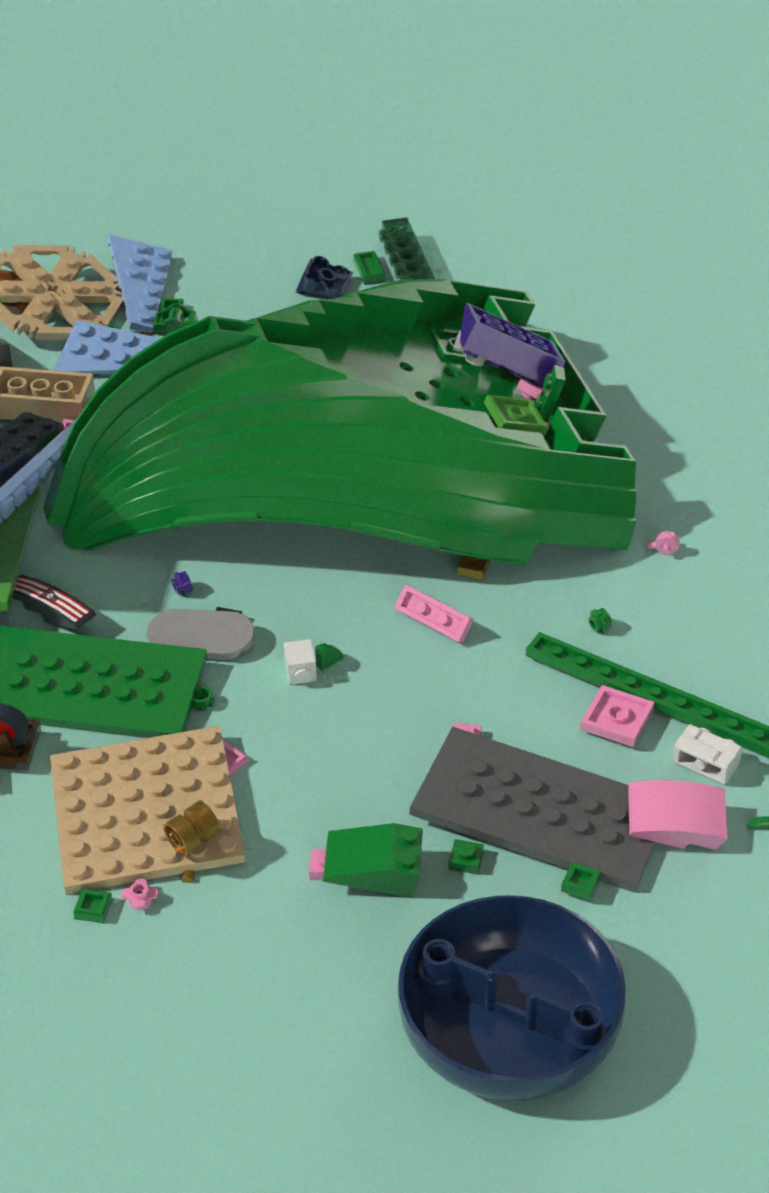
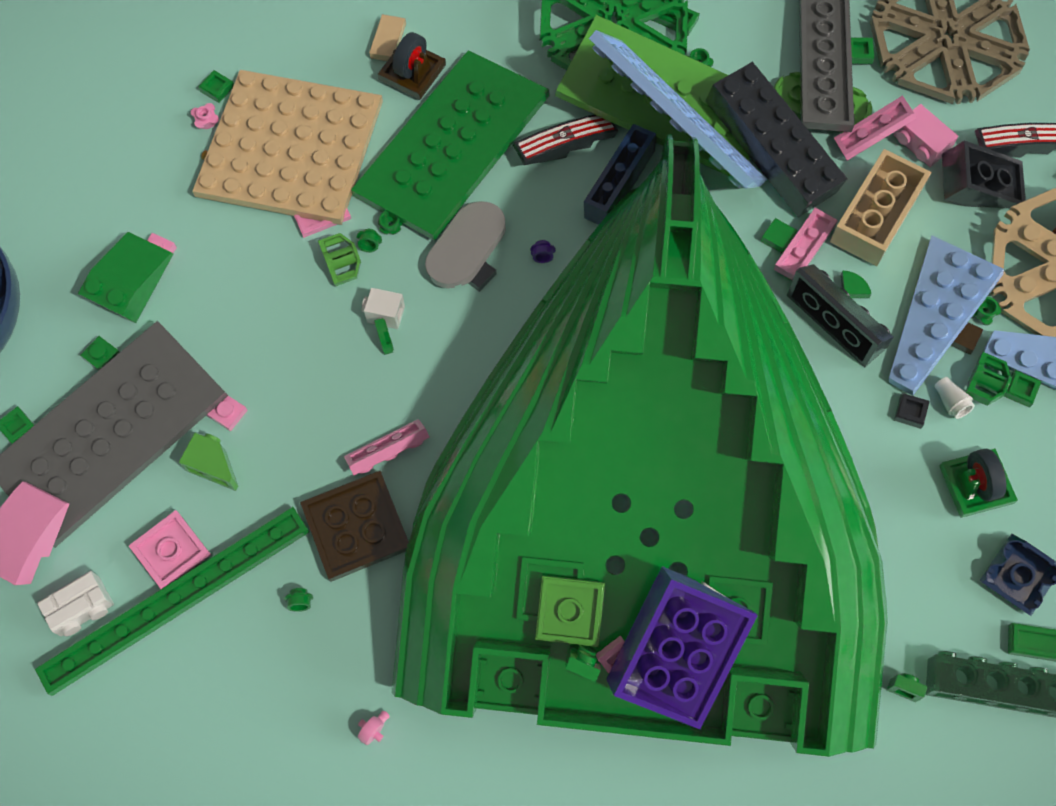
camera: 115 degrees right, 25 degrees up
(79, 549) = (620, 173): none -> dark blue brick
(194, 826) = (219, 148): pearl gold wheel -> none
(230, 702) = (368, 240): none -> green plate
(262, 297) = (978, 482): none -> plate
(265, 711) = (340, 258): none -> bright green piece
(515, 609) = (355, 526): none -> dark brown plate
(521, 720) = (209, 460): none -> bright green slope

